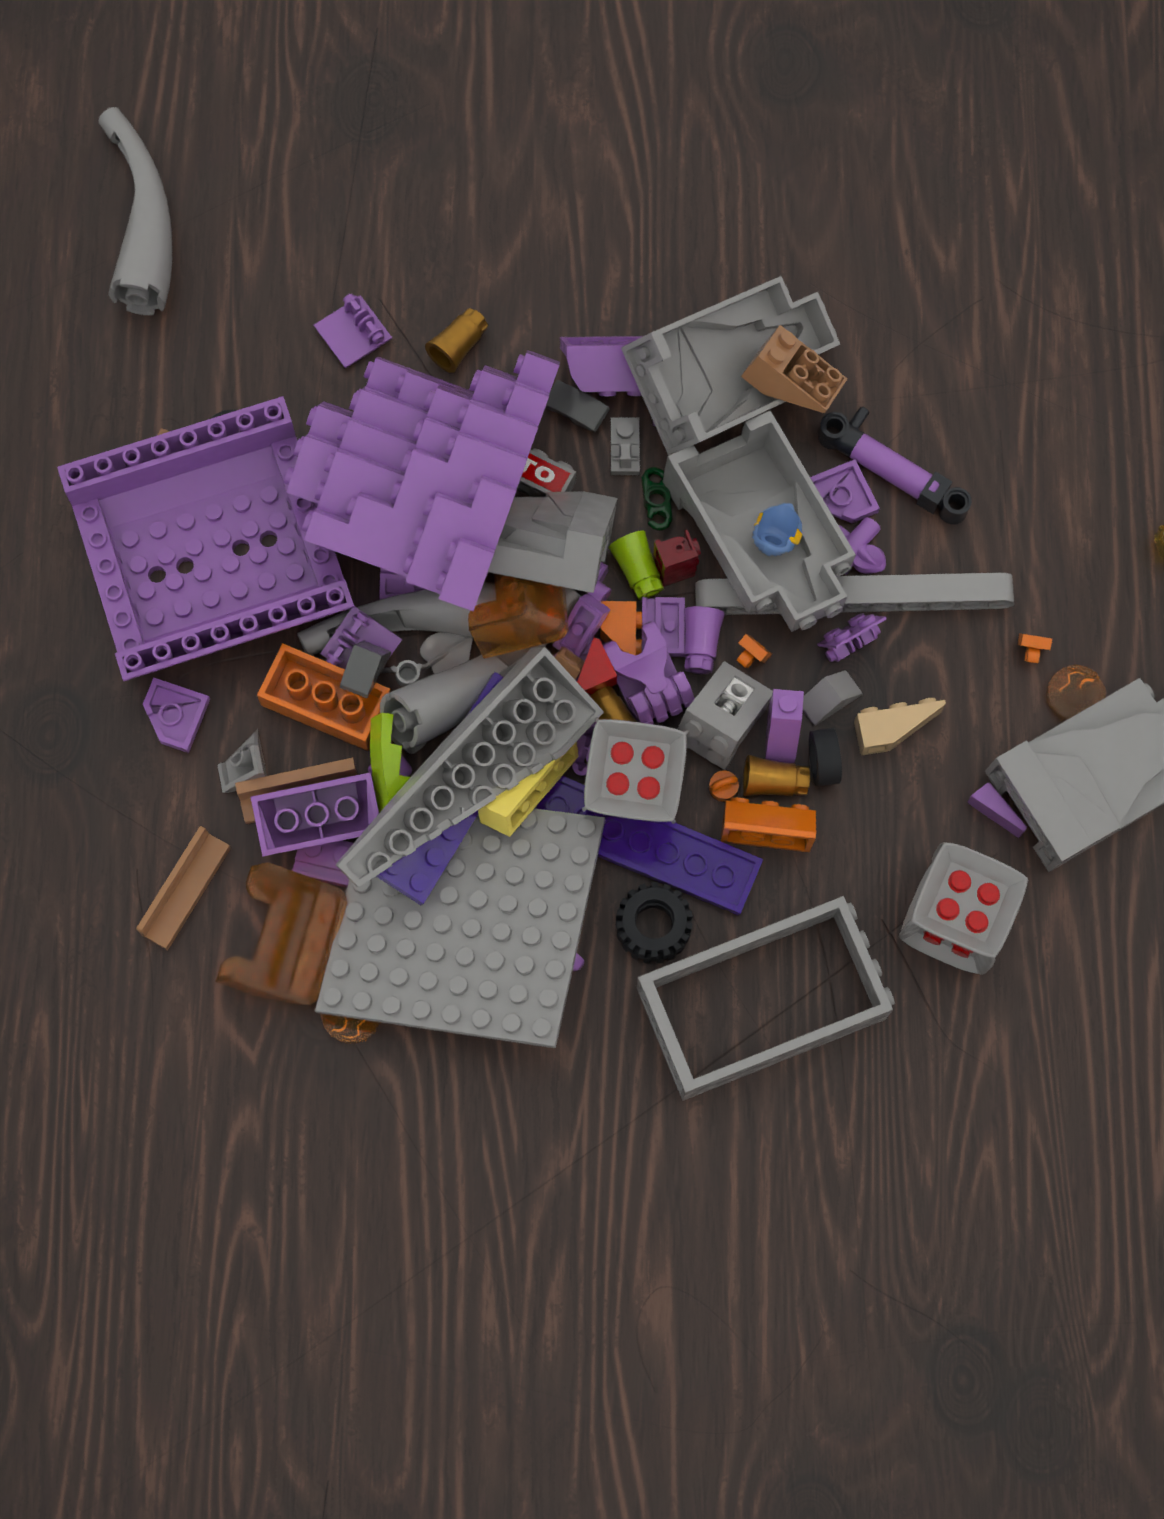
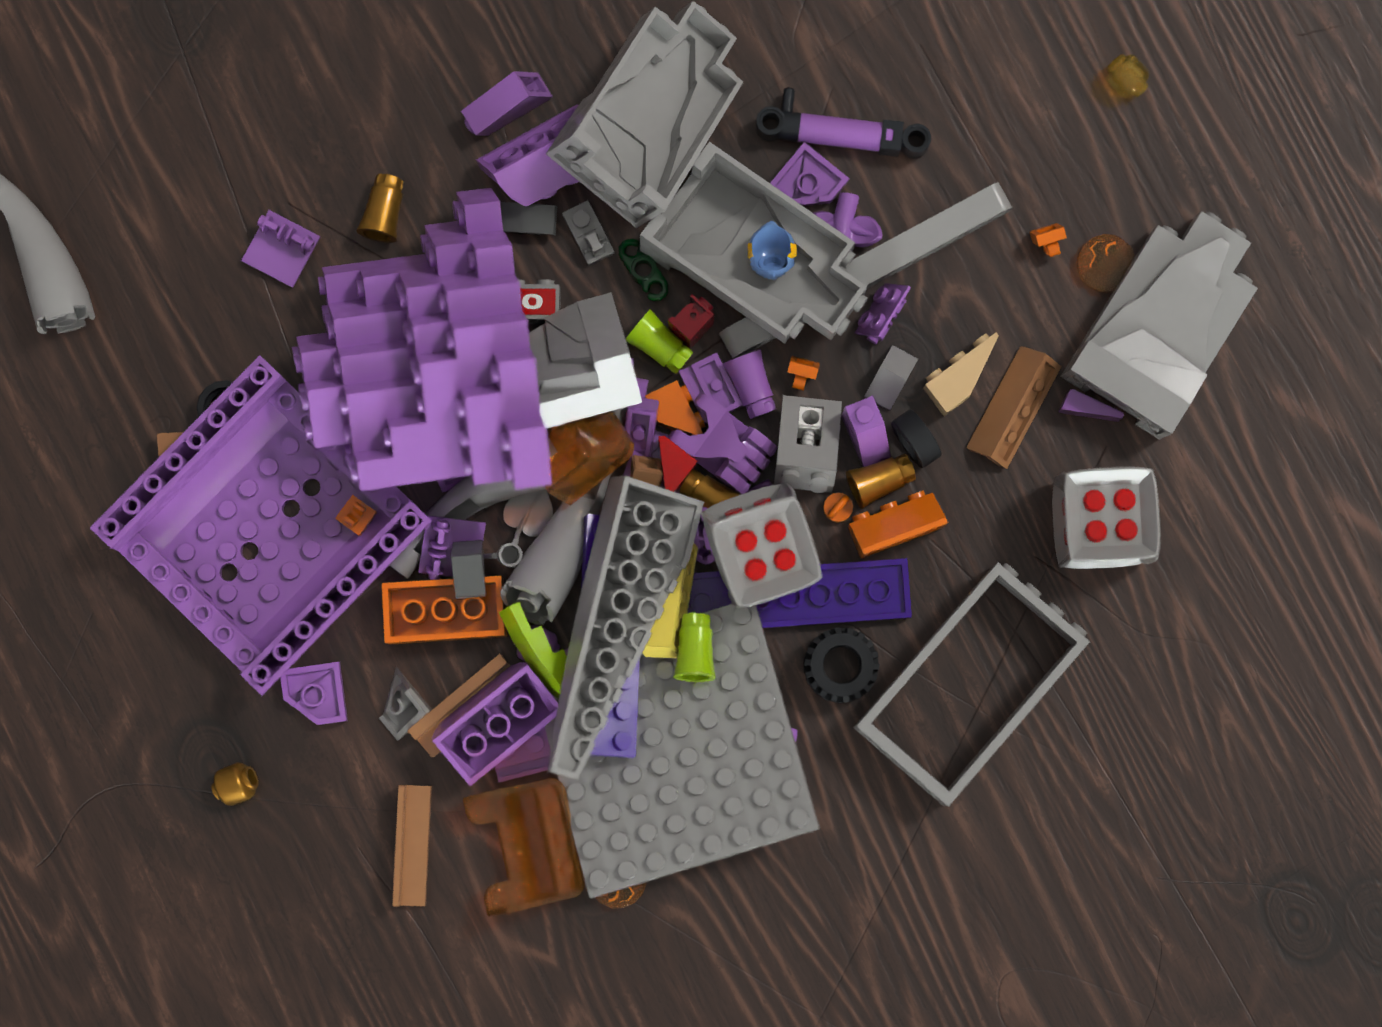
camera: 25 degrees left, 10 degrees up
(59, 755) = (235, 784): none -> pearl gold head
(293, 578) = (356, 515): none -> orange tile
(527, 834) = (695, 649): none -> lime plant
(611, 302) = (506, 102): none -> medium lavender slope
(793, 373) = (712, 93): medium nougat slope -> none
(929, 776) = (1014, 406): none -> medium nougat panel

